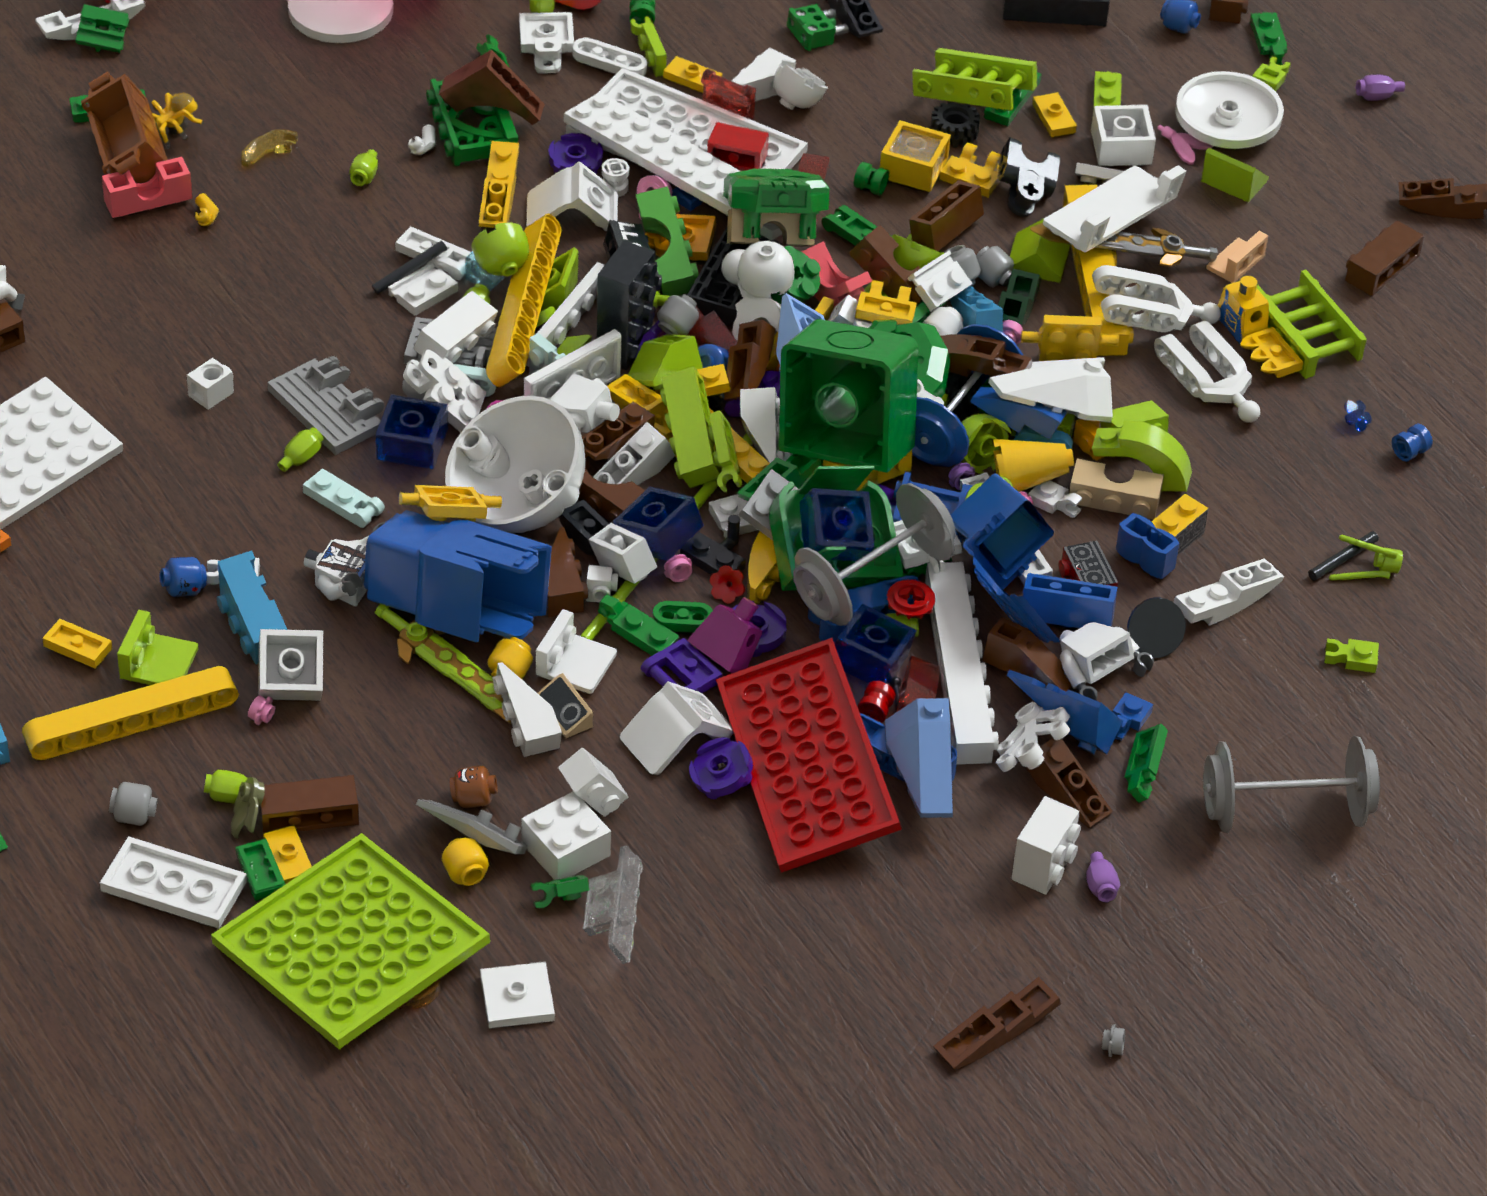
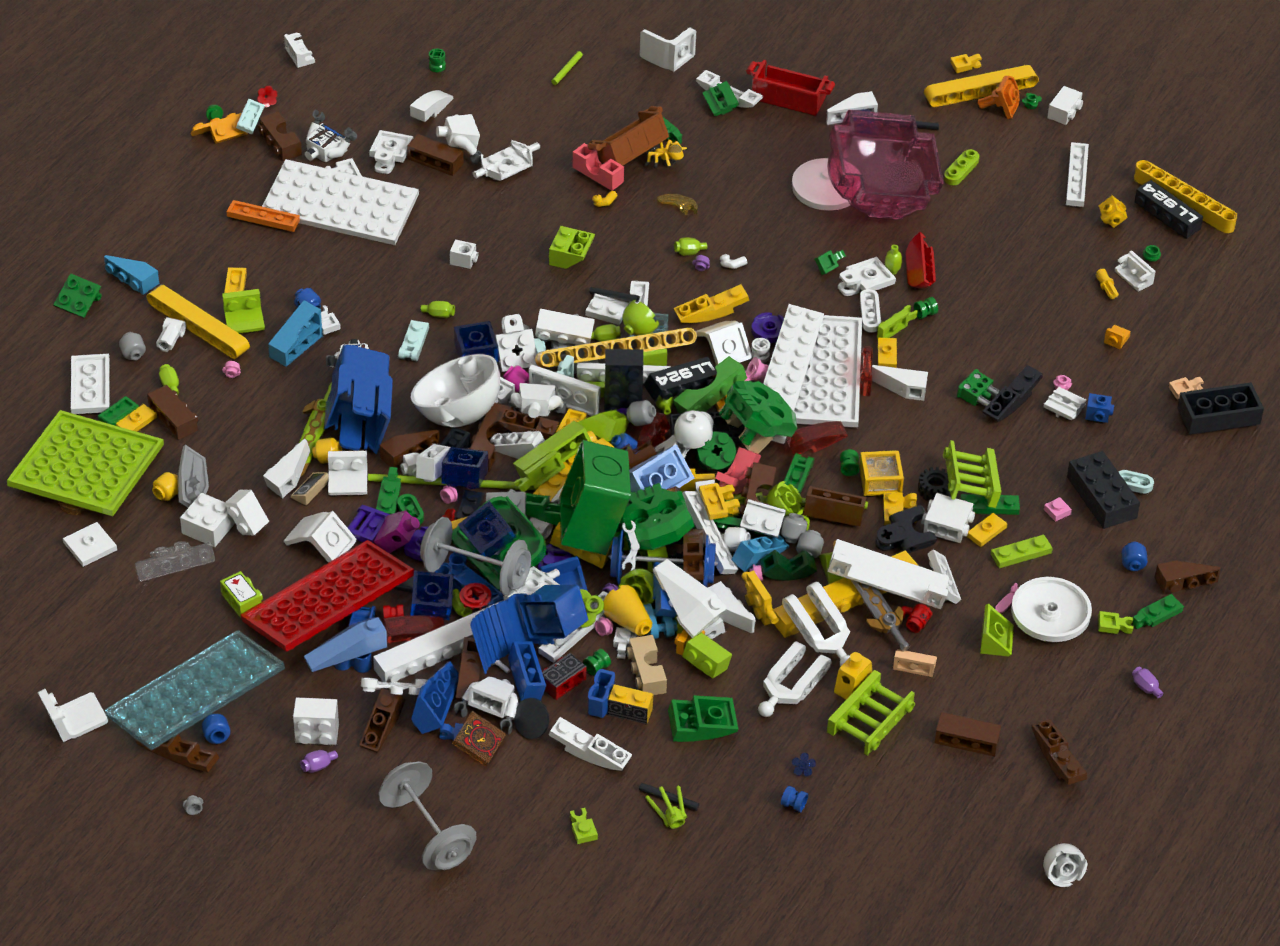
camera: 65 degrees right, 0 degrees up
(49, 259) = (517, 156): none -> white plate
(129, 747) = (171, 331): none -> white piece
(247, 805) = (155, 383): olive plate -> none
(286, 273) = (569, 247): none -> lime slope
(290, 664) = (260, 362): white brick -> none
(321, 401) = (484, 303): light grey hinge -> none
(406, 168) = (701, 263): none -> medium lavender plate
(450, 124) = (766, 258): green fence -> none
(450, 502) = (403, 368): yellow plate -> none
(473, 787) = (222, 469): dark orange head -> none
(490, 83) = (780, 262): copper arch -> none
(569, 888) = (173, 533): green plate -> none
(726, 781) = (299, 565): dark purple plate -> none
(738, 146) = (819, 389): red brick -> none
(738, 851) = (240, 593): none -> brick
(797, 86) = (906, 397): white cylinder -> none
(866, 1121) = (75, 716): none -> white piece
(906, 961) = (194, 689): none -> clear light blue plate
(987, 965) = (216, 728): none -> blue head
(1028, 124) = (948, 517): none -> white brick
(1056, 46) = (1057, 509): none -> bright pink plate
(1081, 529) = (596, 662): none -> green wheel
(1123, 135) = (981, 564): white brick -> none
(1145, 761) = (419, 751): green hinge -> none
(1149, 445) = (678, 666): lime arch -> none
(1156, 695) = (479, 738): none -> clear orange tile
(1171, 221) = (917, 617): none -> red piece
(1233, 475) = (702, 718): none -> green slope
(1273, 351) = (828, 702): yellow plate -> none

